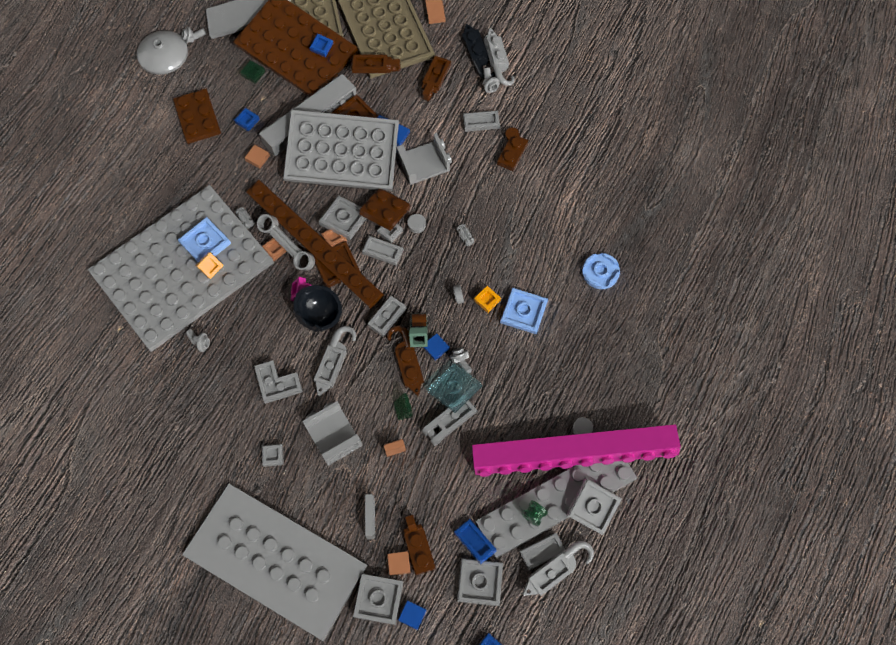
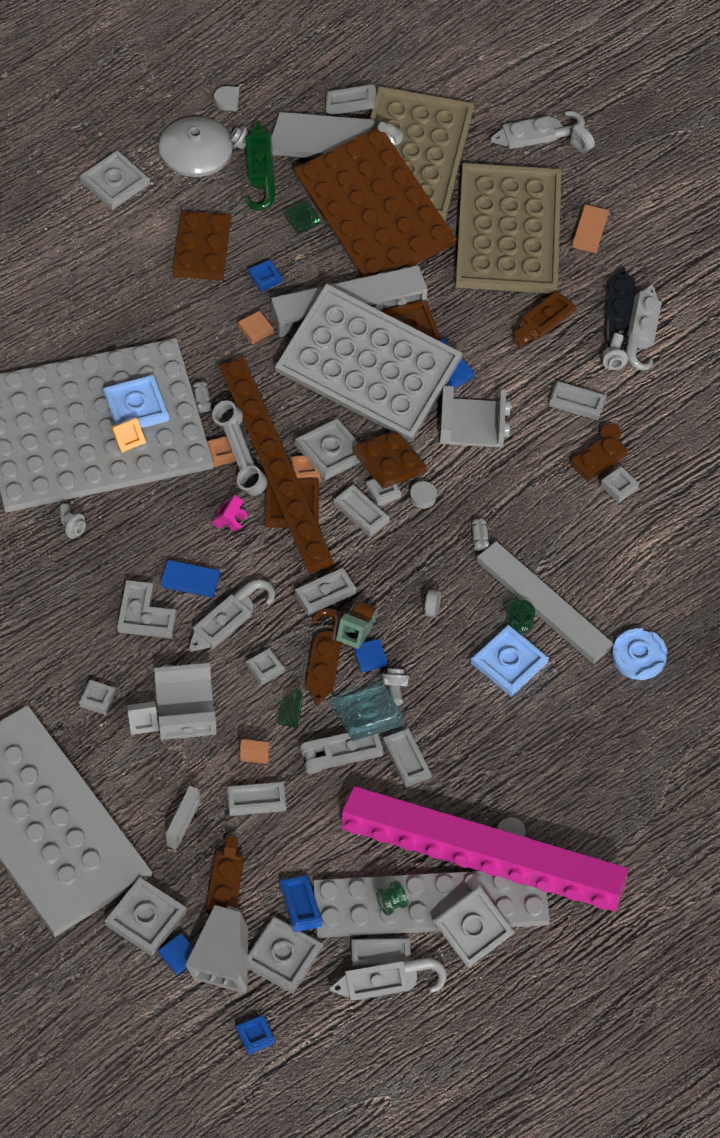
camera: 20 degrees right, 10 degrees down
(119, 95) = (114, 179): none -> light grey tile
(167, 13) = (227, 98): none -> light grey tile
(210, 48) = (260, 166): none -> dark green plate
(295, 345) = (190, 579): none -> blue tile
(310, 457) = (142, 718): none -> light grey tile
(317, 308) = (239, 542): black cylinder -> none
(321, 45) = (408, 218): blue tile -> none
(372, 384) = (265, 666): none -> light grey tile
(375, 64) = (468, 270): reddish brown hinge -> none
(399, 563) = (192, 888): nougat tile -> none
(410, 479) = (256, 798): none -> light grey tile
(441, 601) = (222, 951): none -> light grey slope
(487, 299) = (467, 625): light orange plate -> none
(492, 406) = (406, 757): none -> light grey tile
(520, 275) = (526, 613): none -> clear green wheel
(526, 262) = (547, 603): none -> light grey tile
(534, 165) = (619, 484): none -> light grey plate

